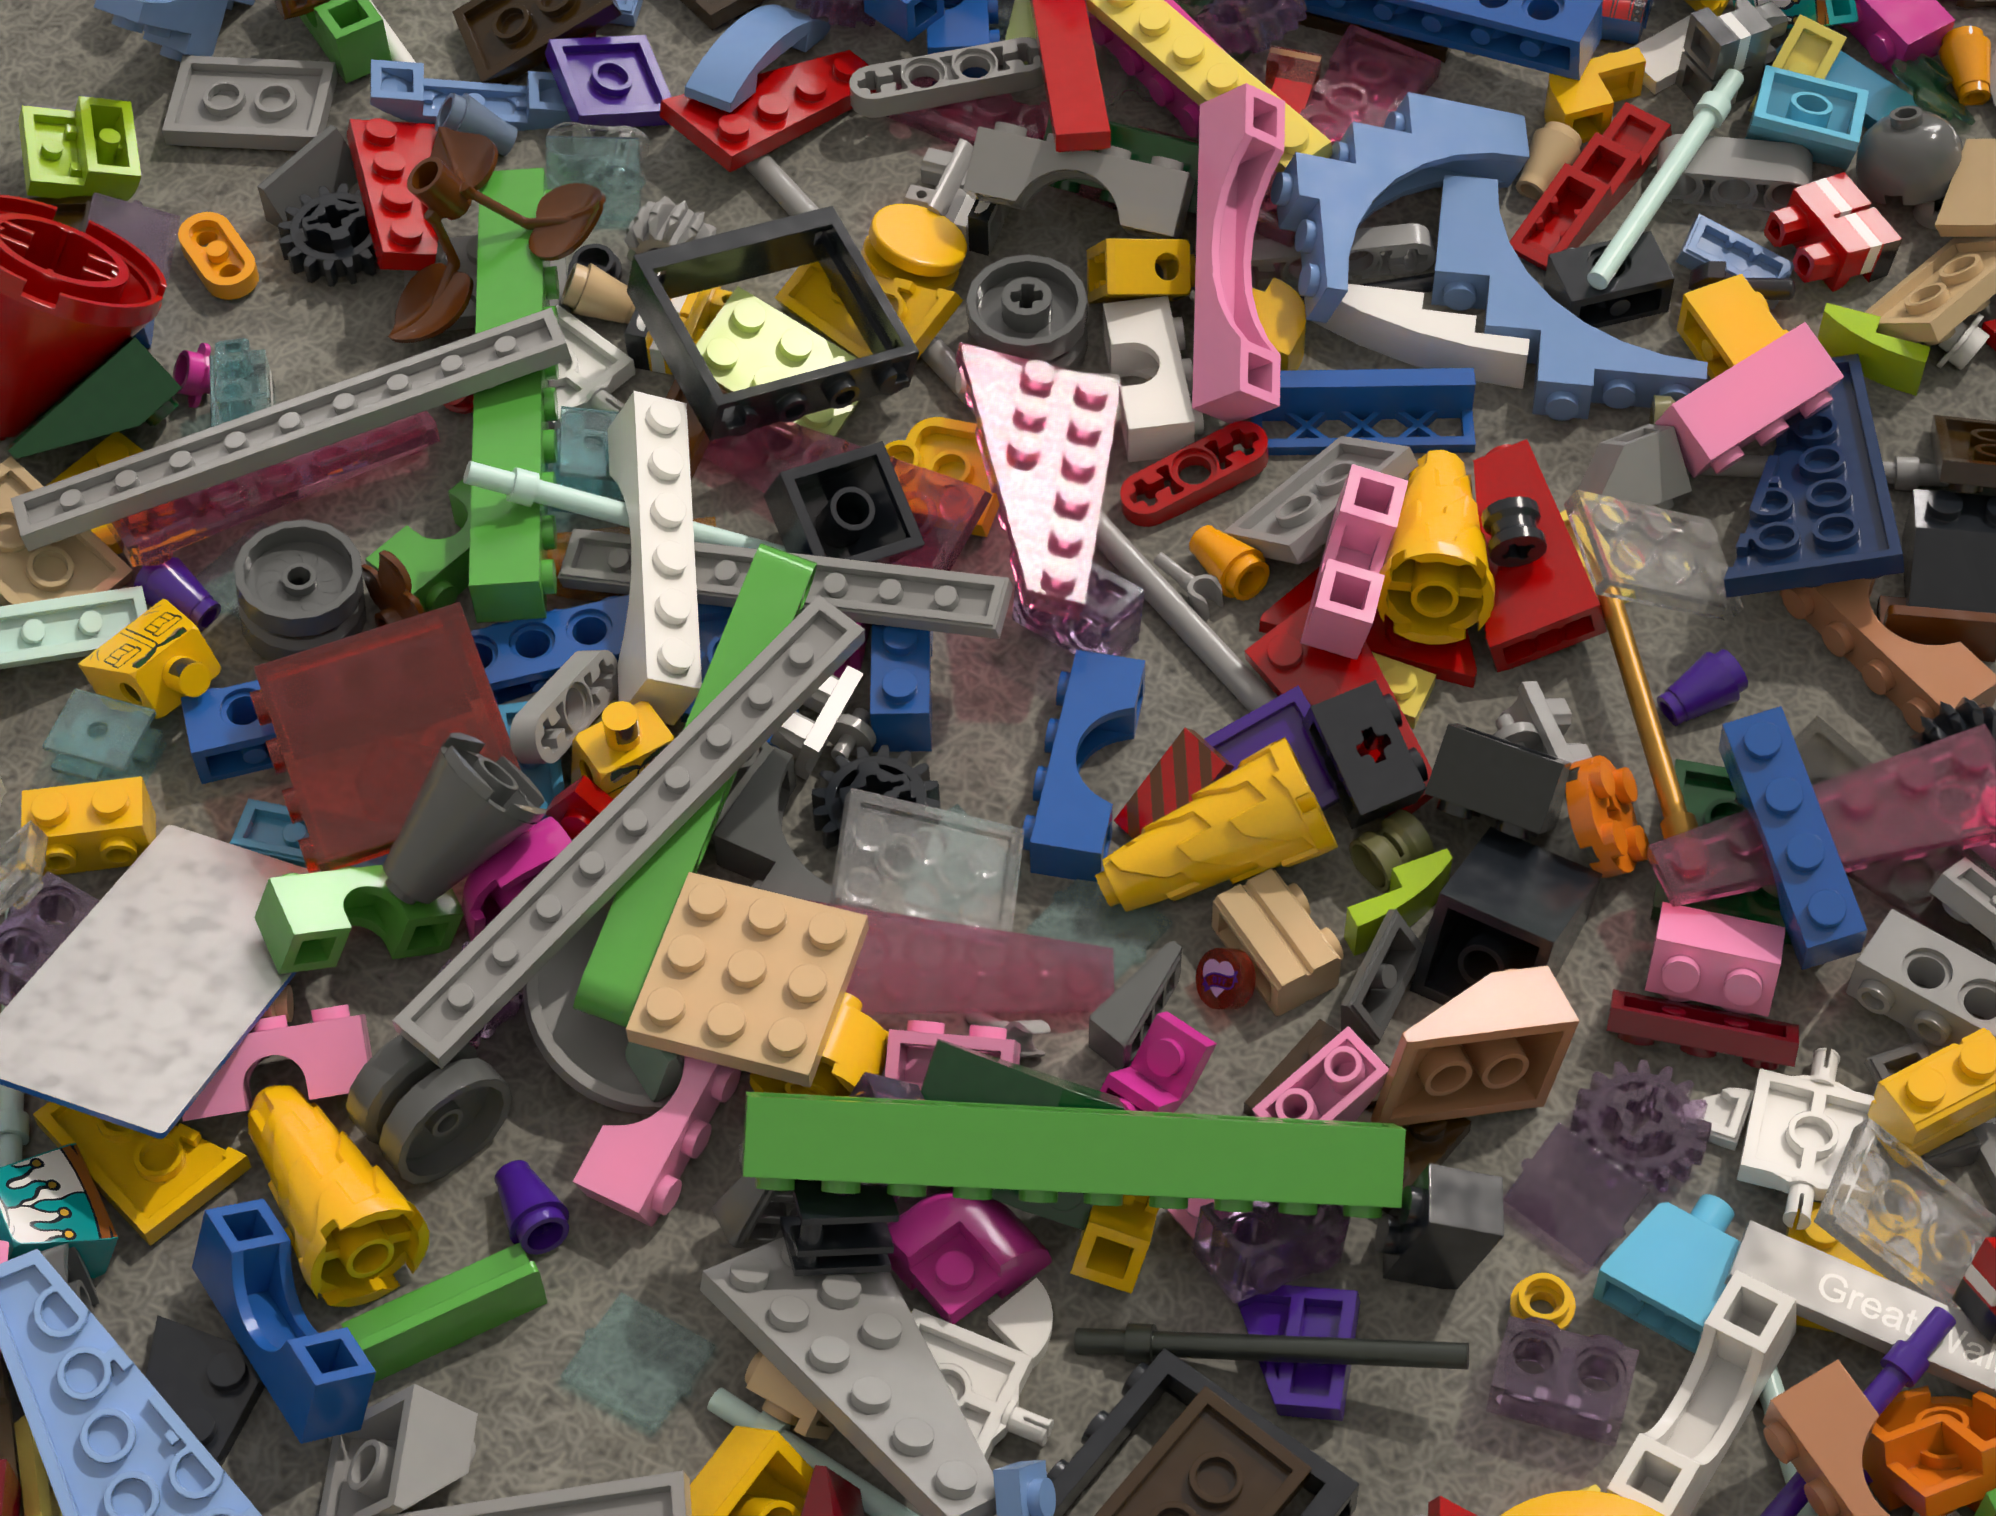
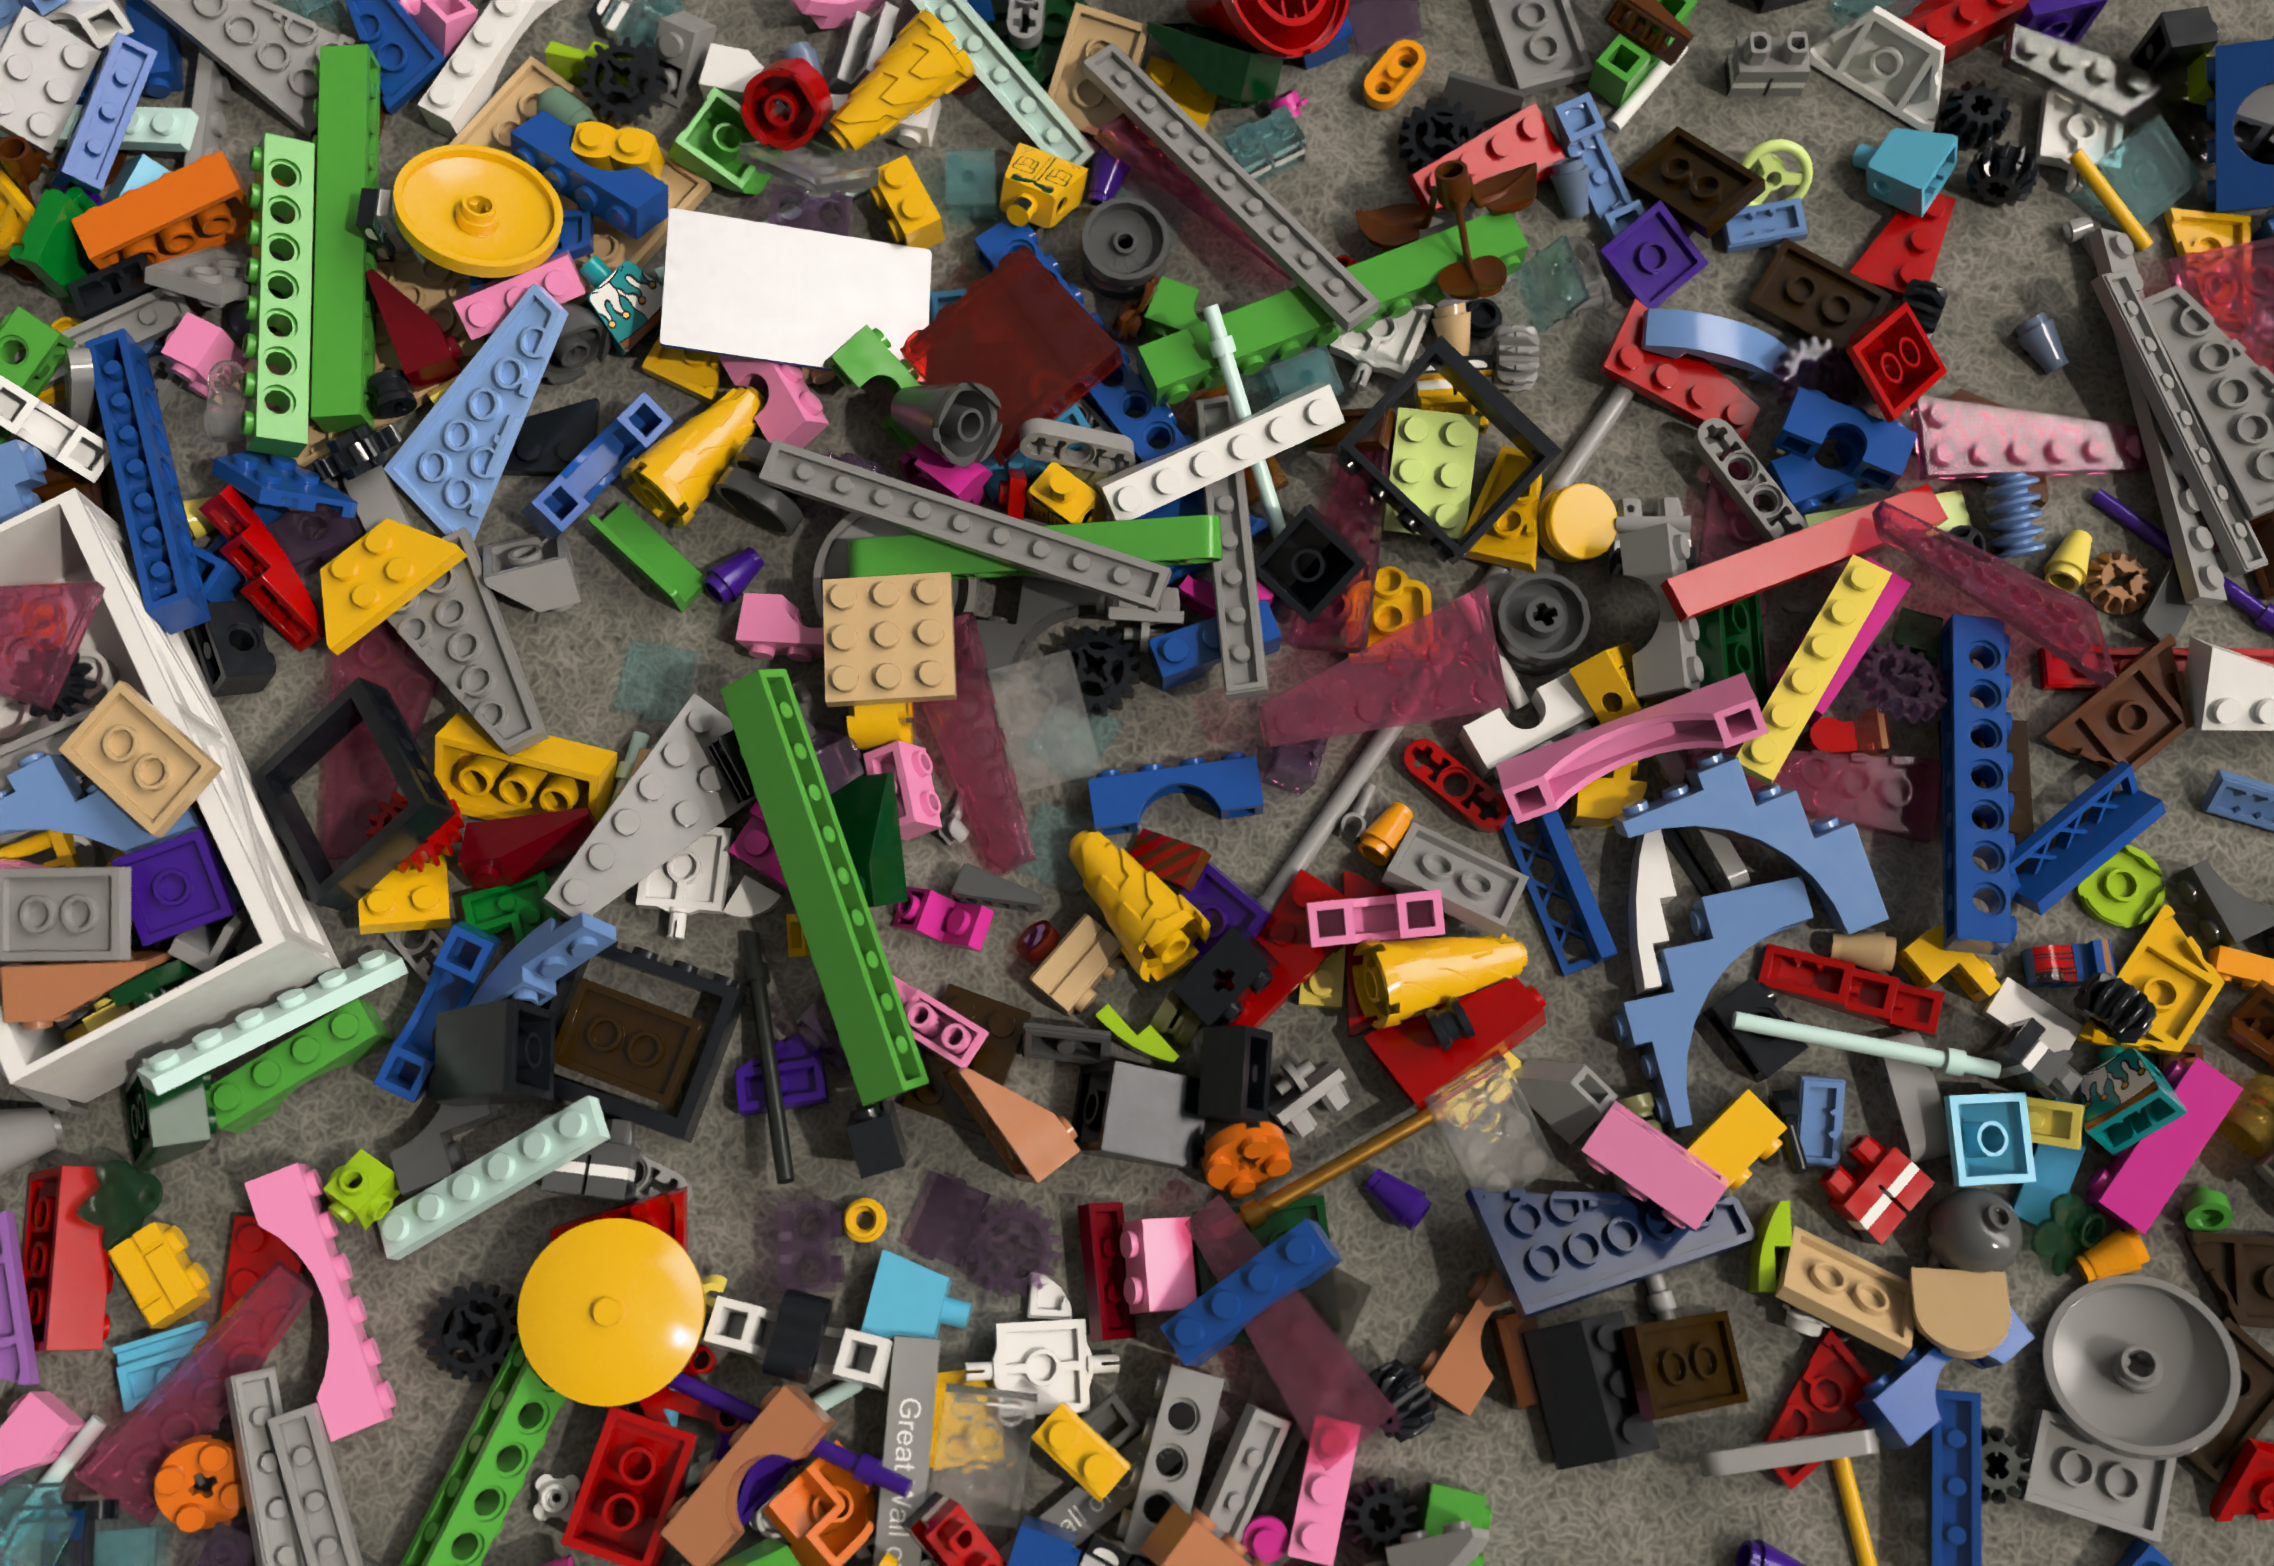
camera: 70 degrees right, 20 degrees up
(1695, 1397) = (797, 1336): none -> black axle

